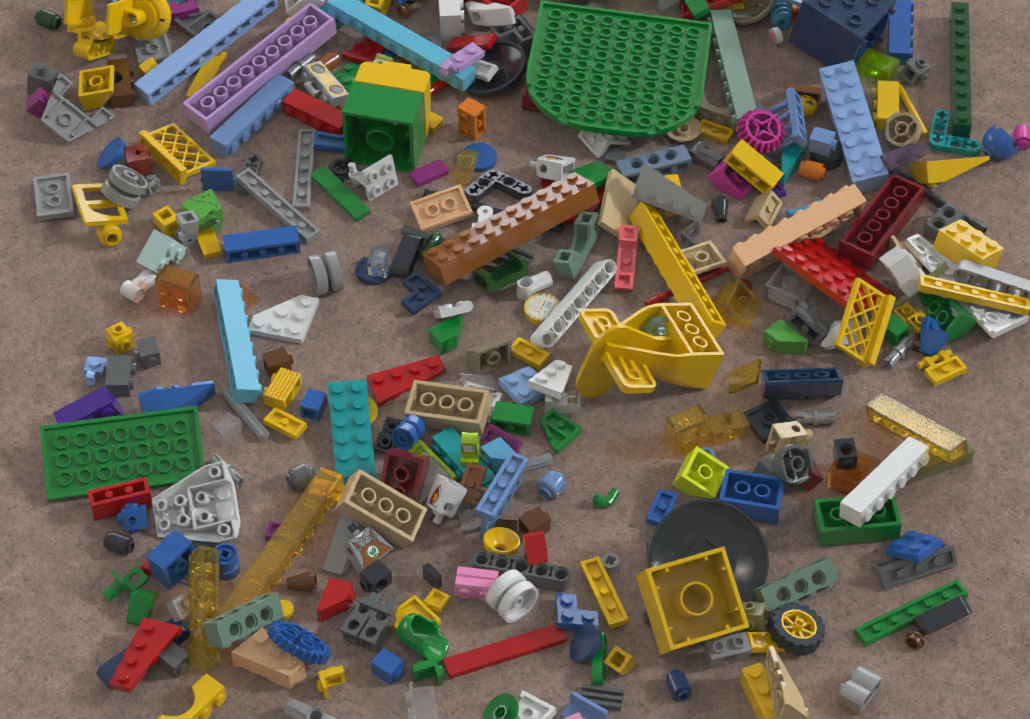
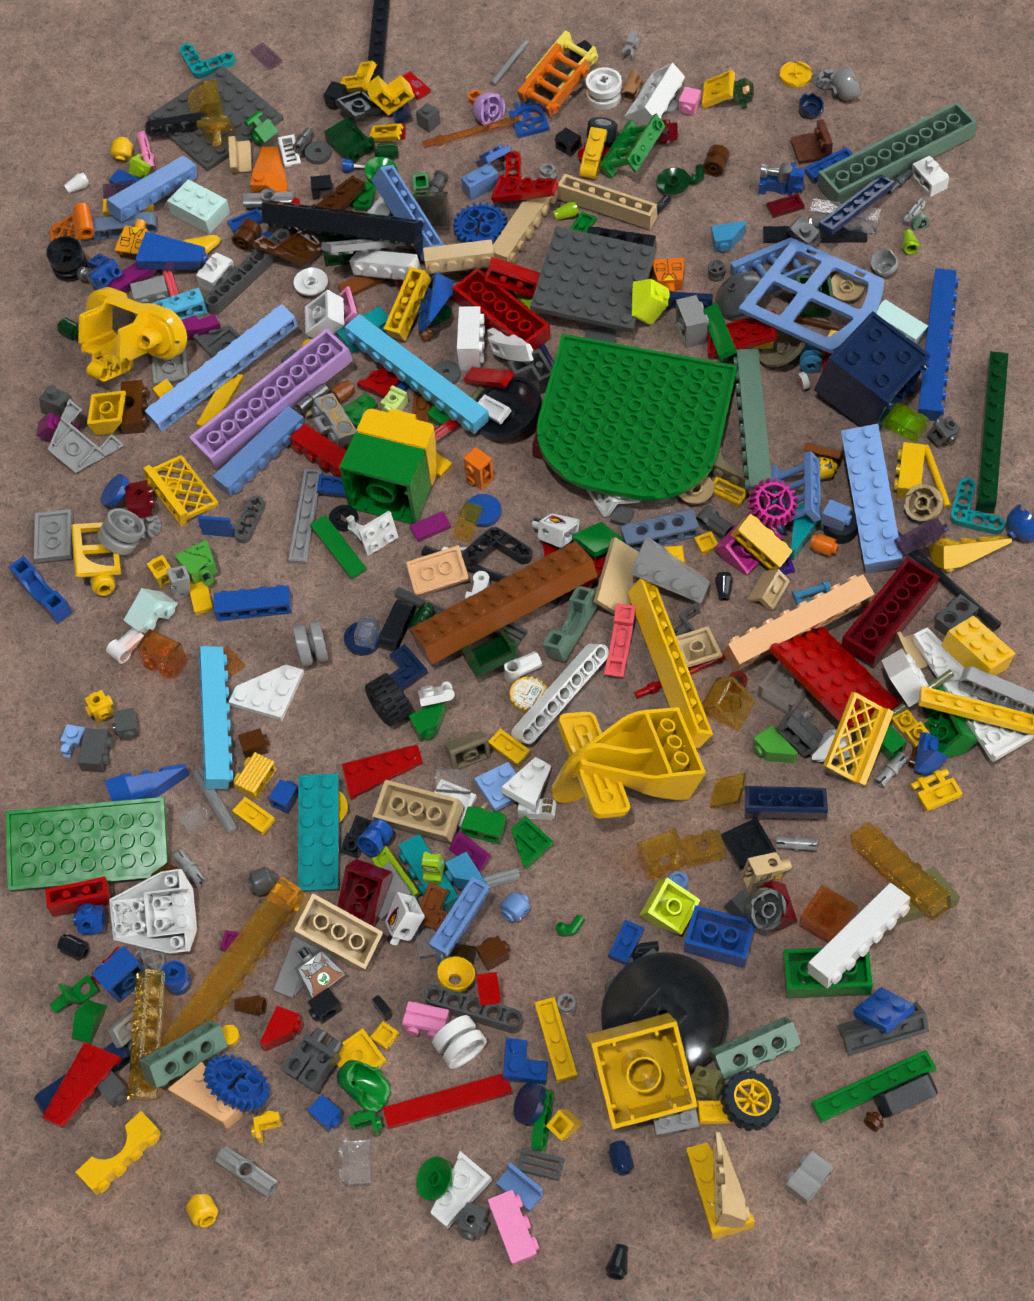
camera: 10 degrees right, 10 degrees up
(34, 233) = (36, 587): none -> blue arch
(91, 406) = (62, 790): dark purple wedge -> none
(277, 205) = (273, 558): light grey tile -> none
(407, 315) = (387, 699): none -> black tyre
(462, 59) = (474, 401): lavender hinge -> none
(655, 326) = (637, 736): clear light blue tile -> none
(698, 174) = (706, 542): none -> yellow tile
(845, 454) = (821, 891): black brick -> none

